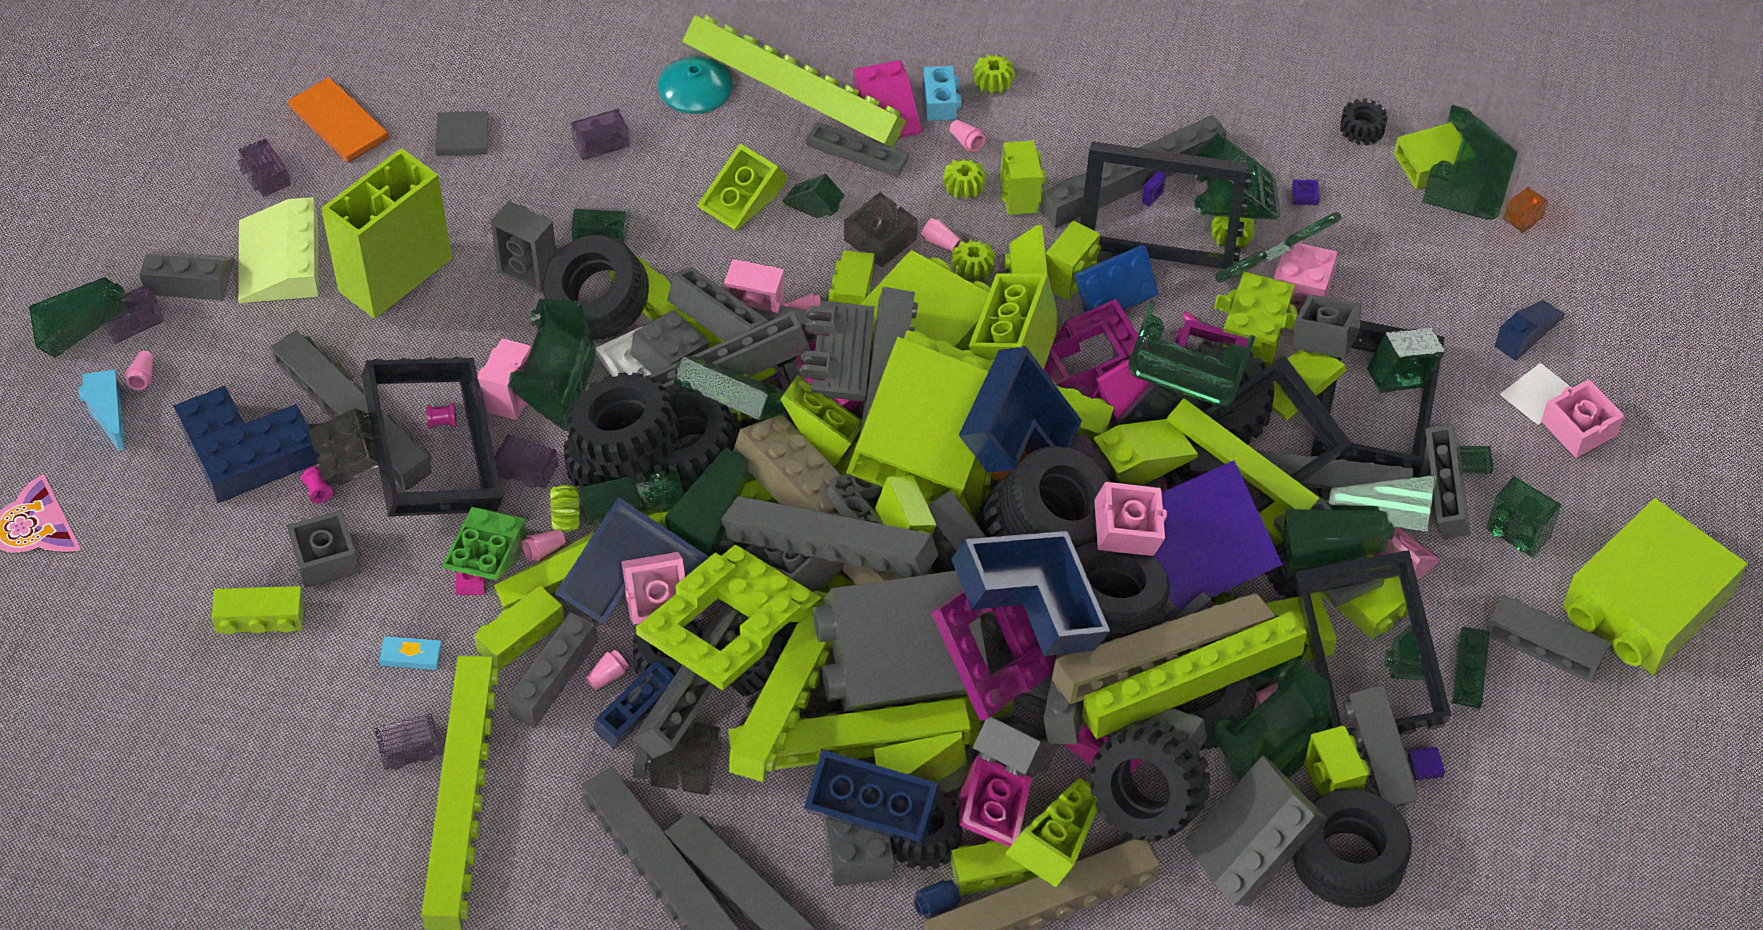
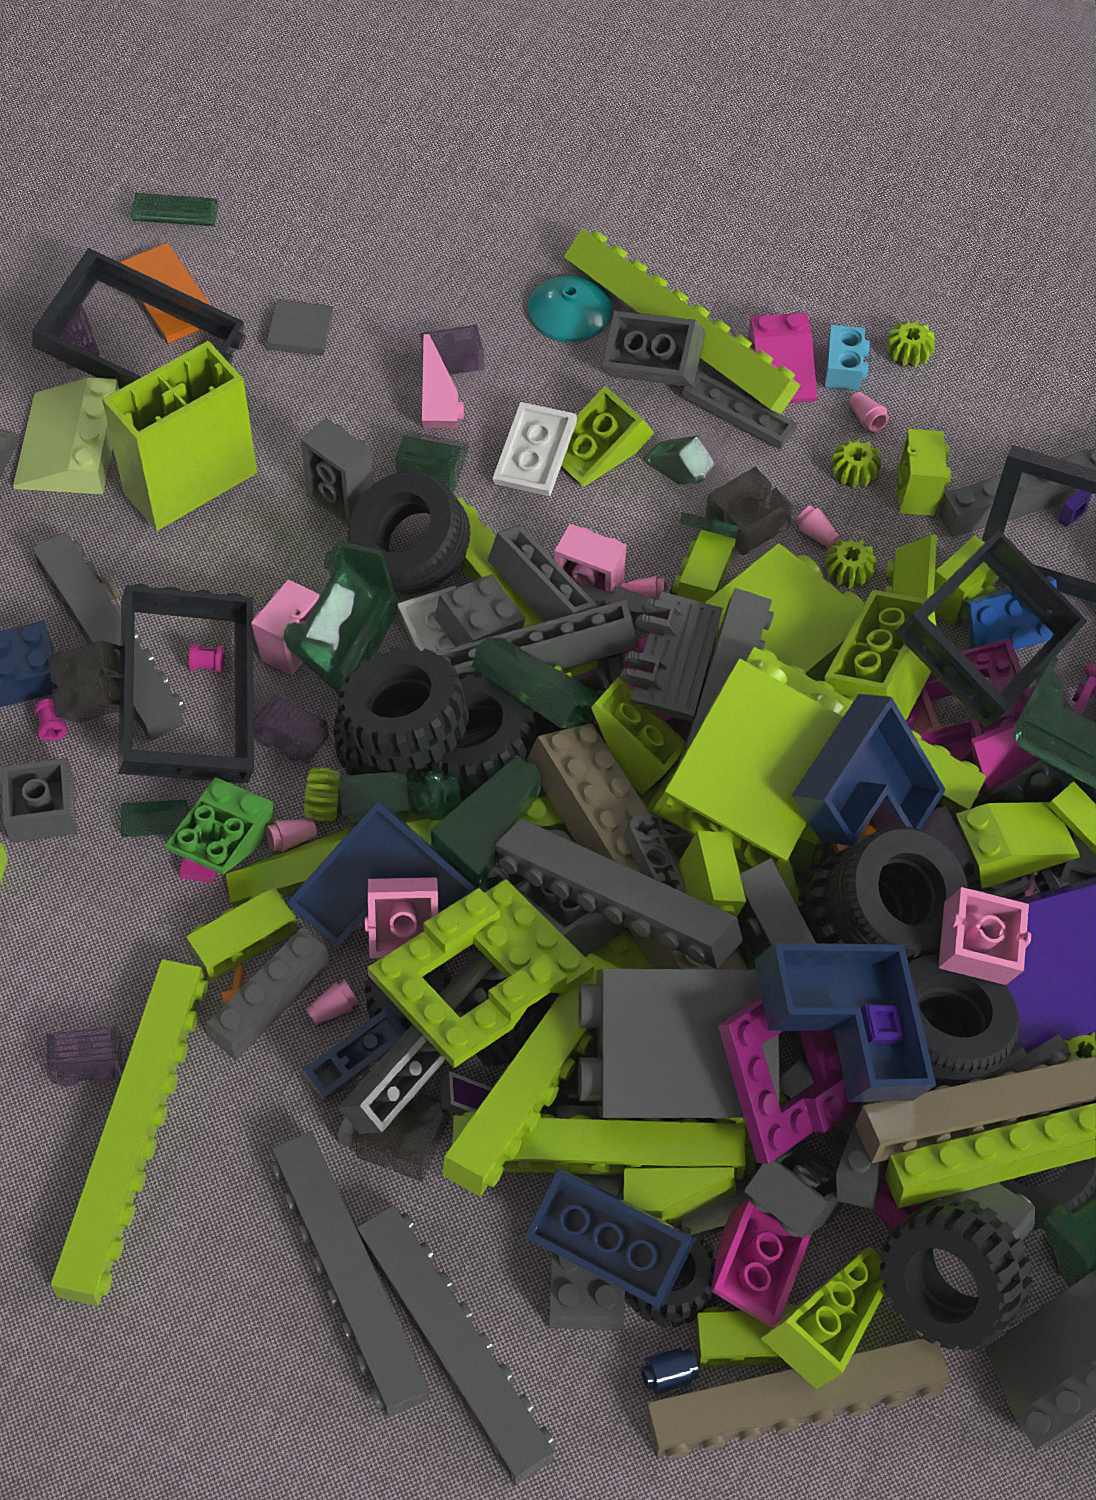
camera: 10 degrees right, 5 degrees up
(316, 116) = (98, 267): none -> black window
(329, 47) = (174, 209): none -> clear green plate
(410, 653) = (112, 943): medium azure tile -> none
(422, 550) = (152, 817): none -> clear green tile
(522, 669) = (236, 985): none -> orange hand
(597, 169) = (439, 395): none -> bright pink slope
(688, 205) = (535, 449): none -> white plate
(727, 716) = (461, 1094): none -> tile
(775, 107) = (653, 348): none -> dark grey brick
(848, 245) = (708, 524): none -> clear green tile
(1061, 594) = (882, 1024): none -> dark purple tile
(1074, 323) = (953, 667): none -> black window

